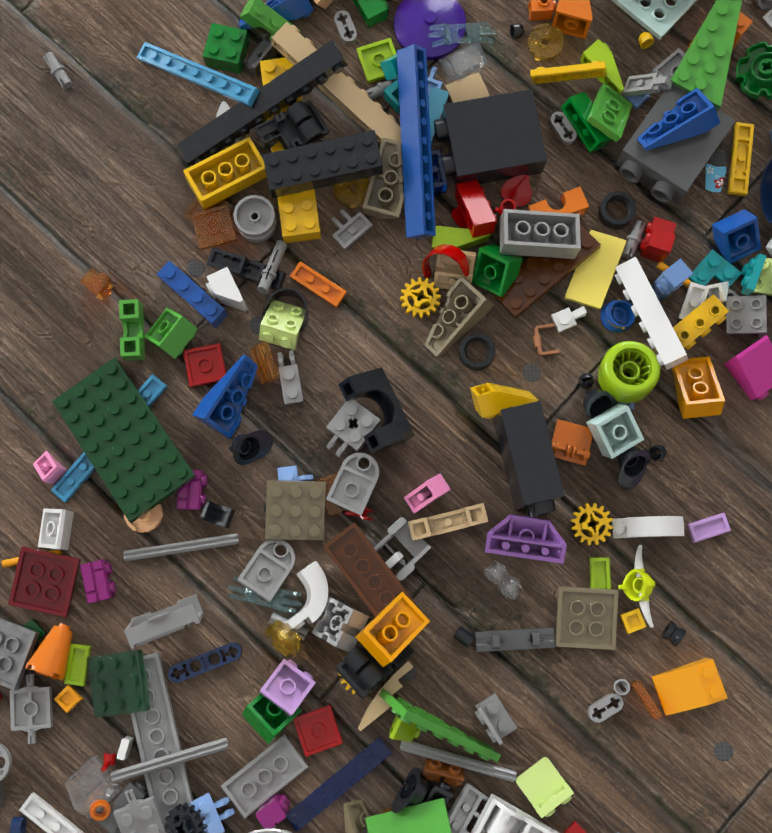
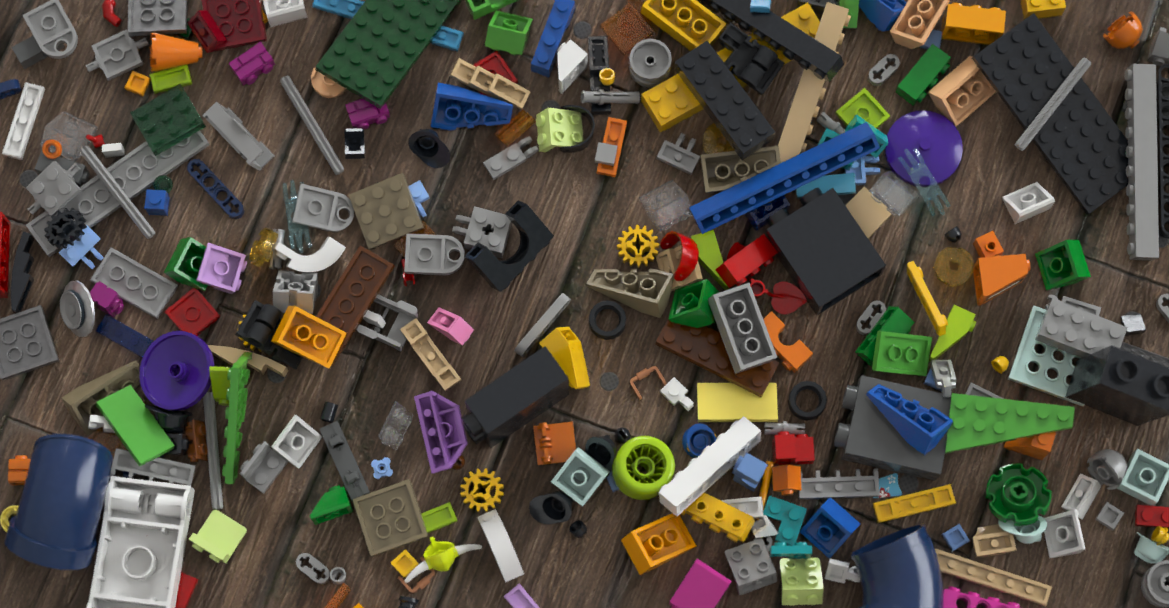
camera: 65 degrees right, 5 degrees down
(45, 612) = (206, 30): none -> dark red slope
(180, 712) = (163, 183): none -> clear green plate
(195, 724) = (157, 202): none -> blue brick
(213, 368) = (489, 84): none -> tan slope
(251, 262) = (607, 76): none -> yellow hinge
(324, 290) = (606, 154): none -> light grey tile
(372, 768) = (176, 370): none -> dark purple dish
(392, 258) = (666, 205): none -> clear slope
(459, 410) = (542, 325): none -> light grey beam
(482, 677) = (296, 441): none -> white slope
(531, 602) = (378, 473): none -> light blue plate
(556, 667) = (331, 505): none -> green slope
(655, 612) = (422, 583): none -> nougat piece
(683, 250) = (786, 479): none -> orange brick
(702, 214) = (840, 486): none -> light grey hinge

